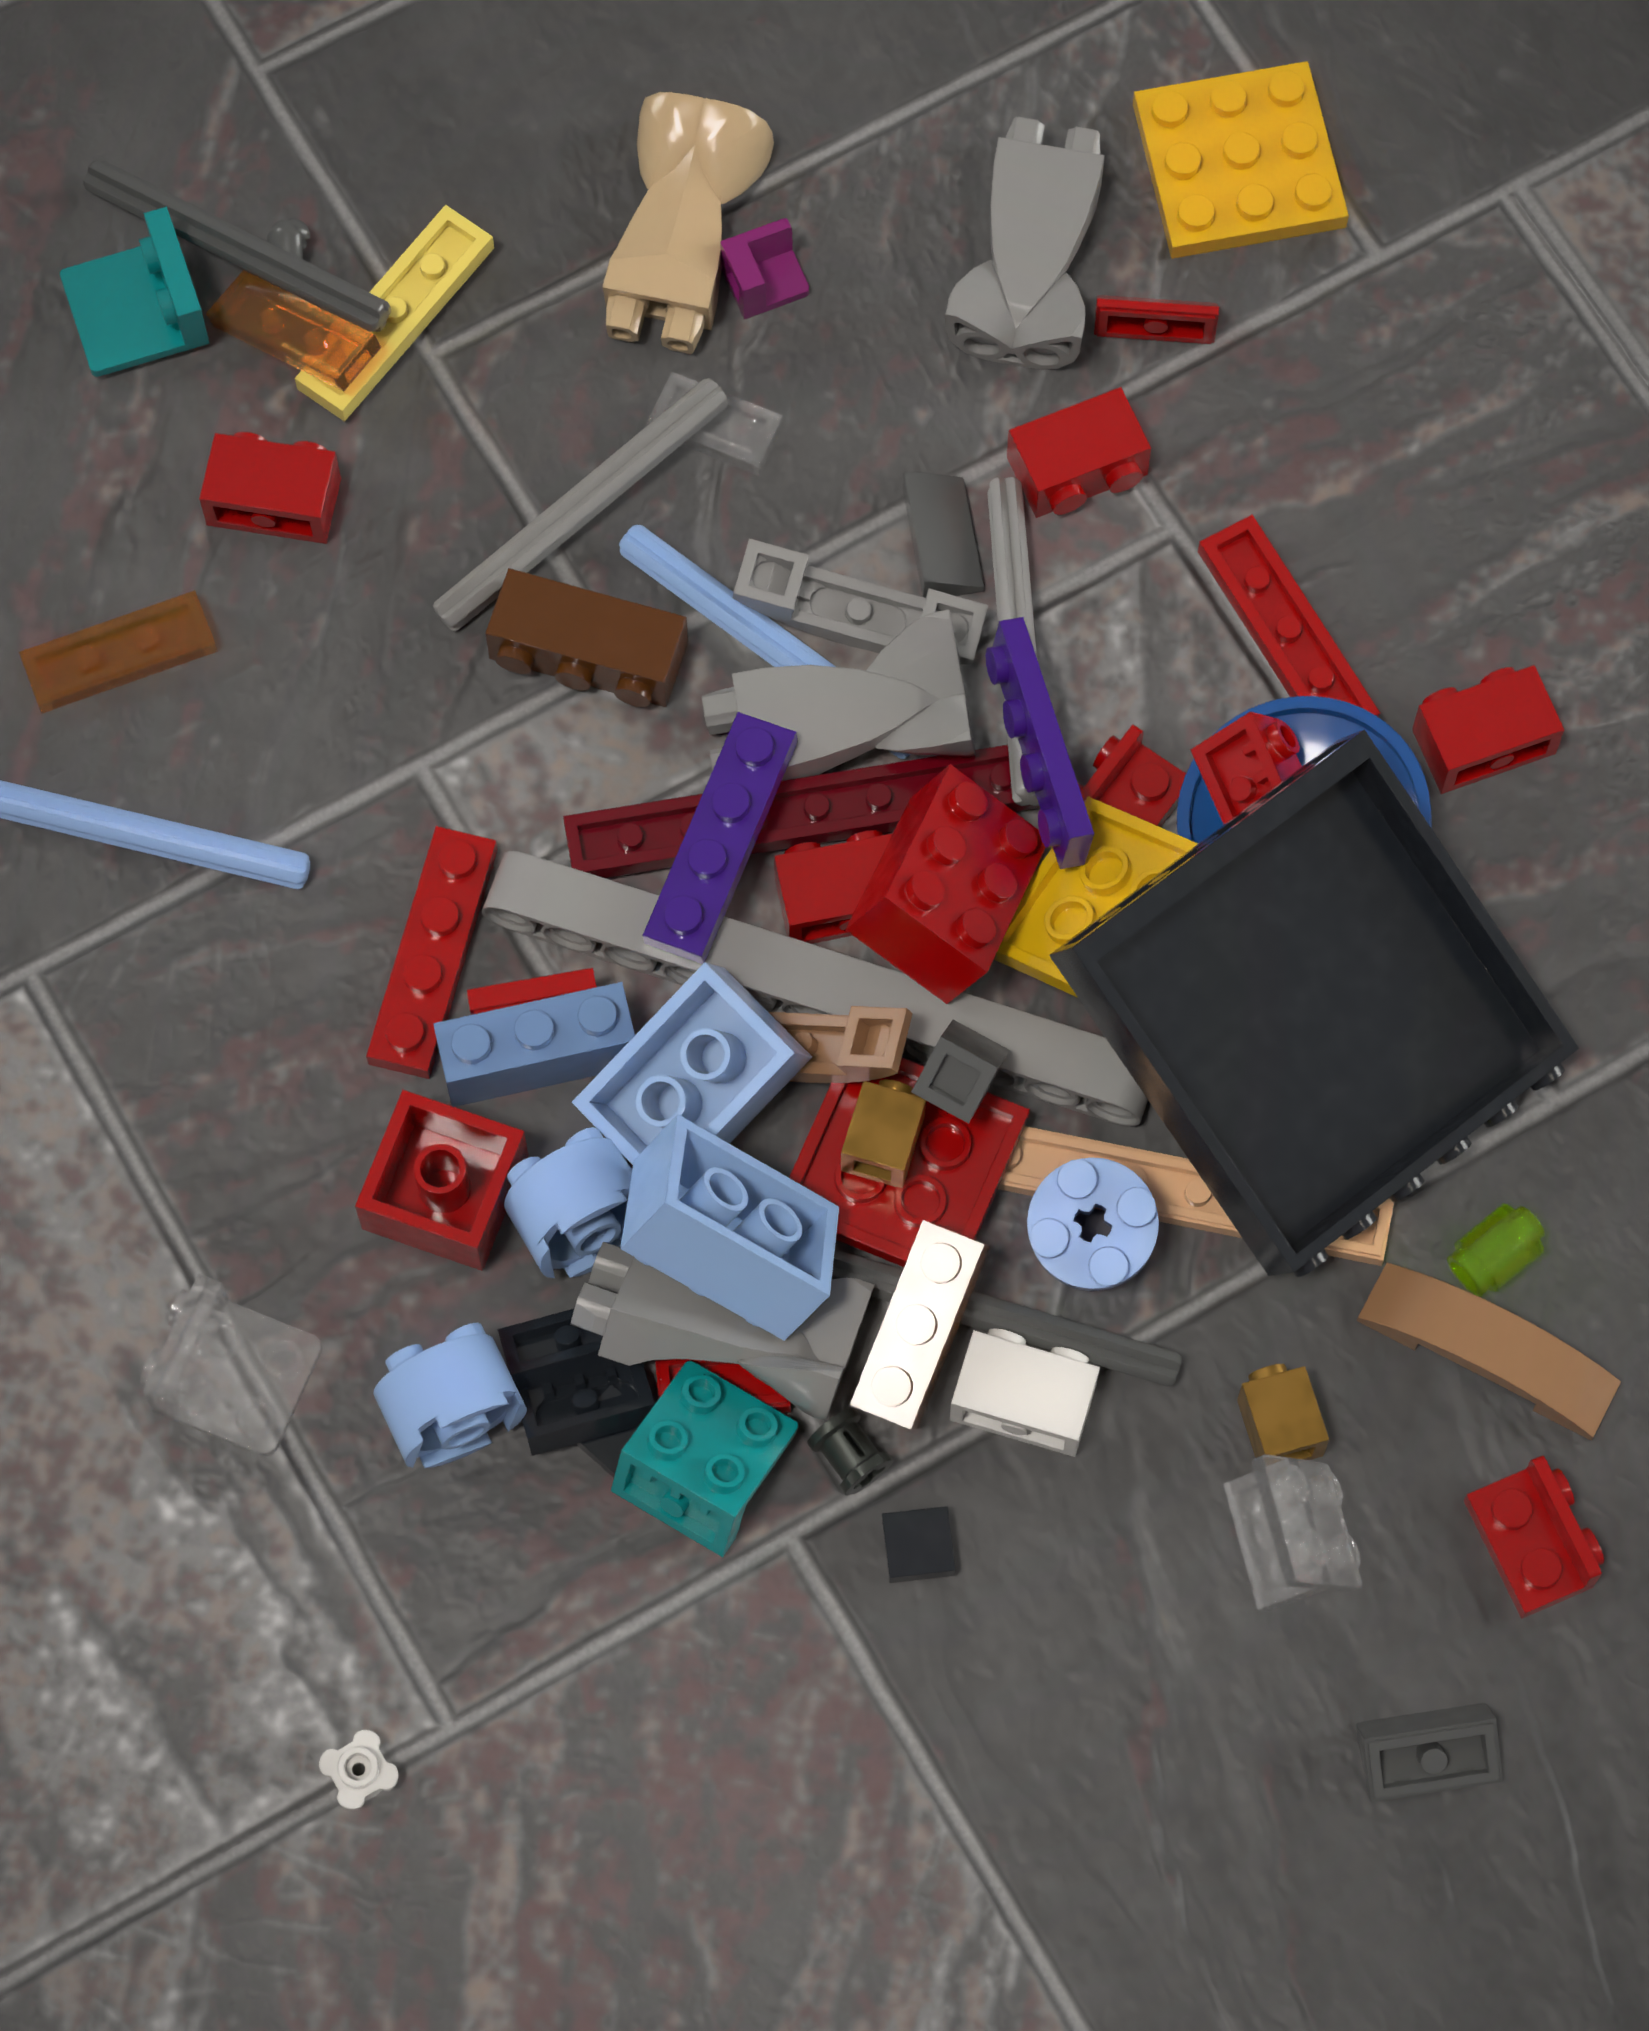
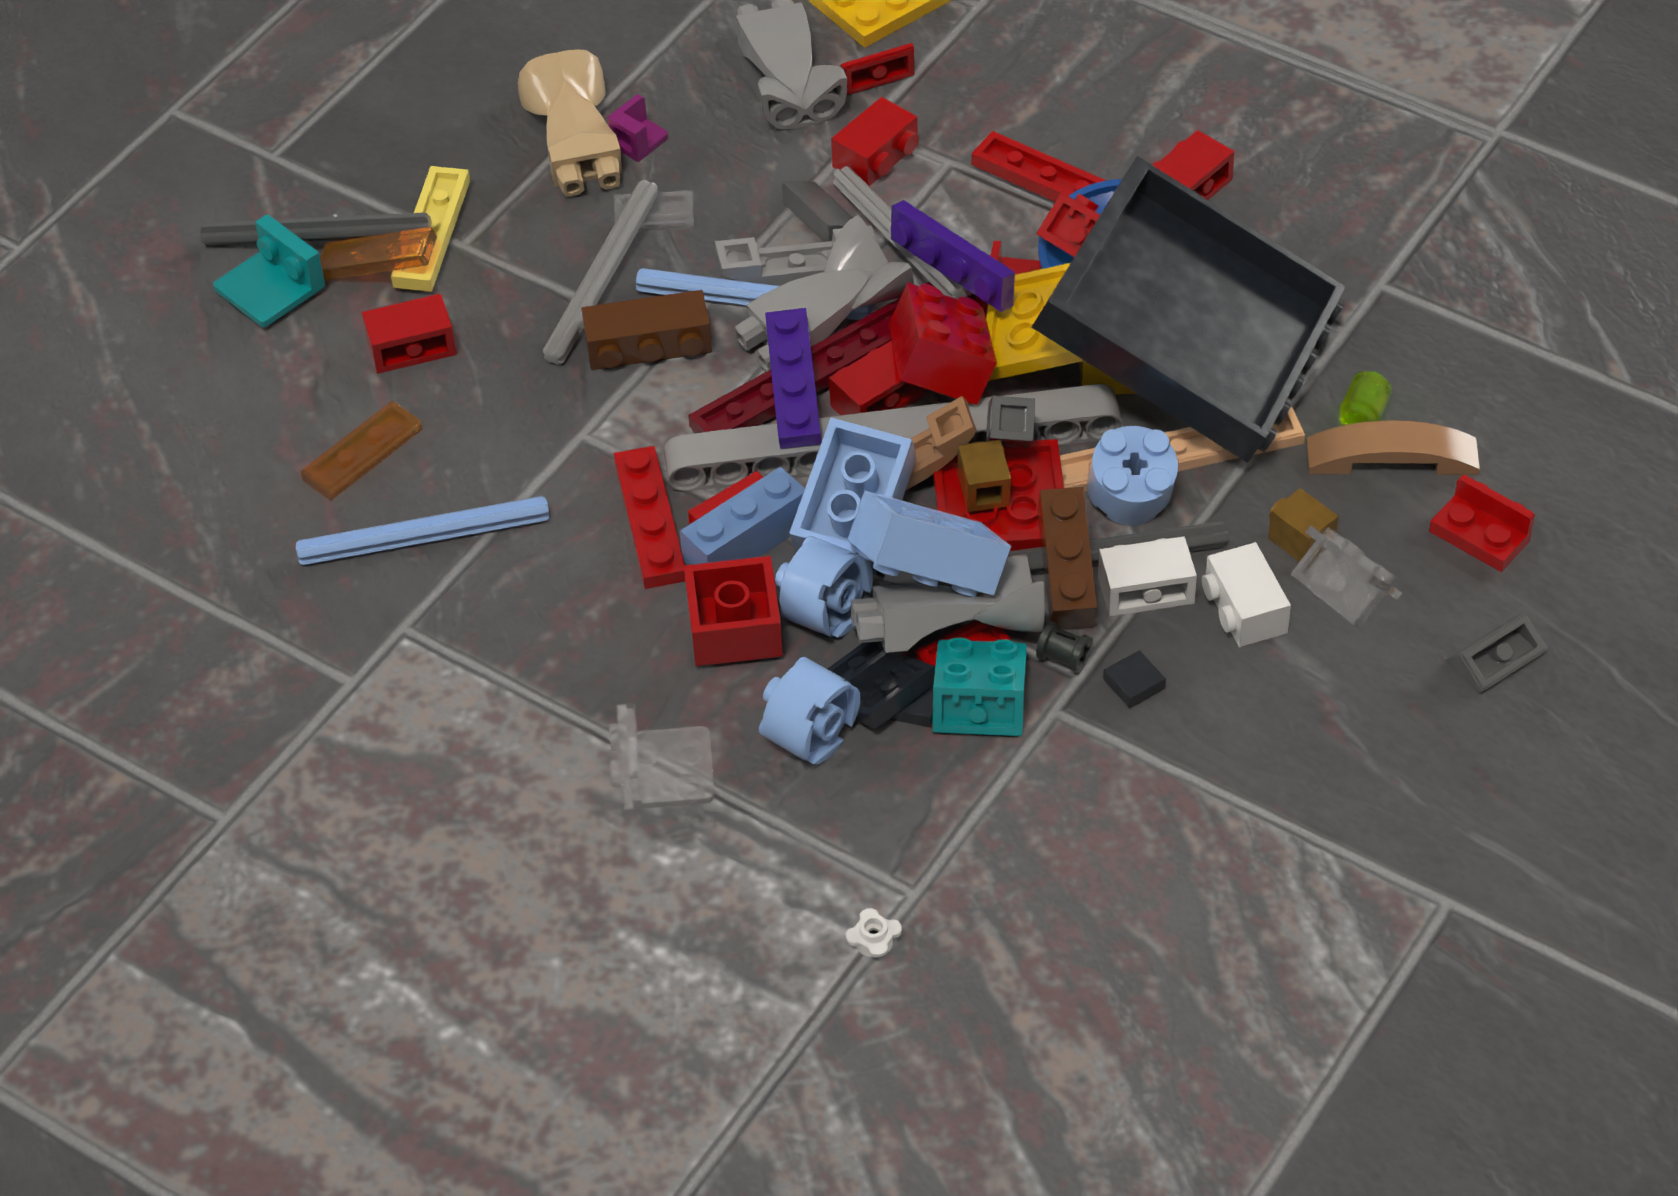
camera: 25 degrees left, 20 degrees down
(1140, 1491) = (1246, 594): none -> white brick

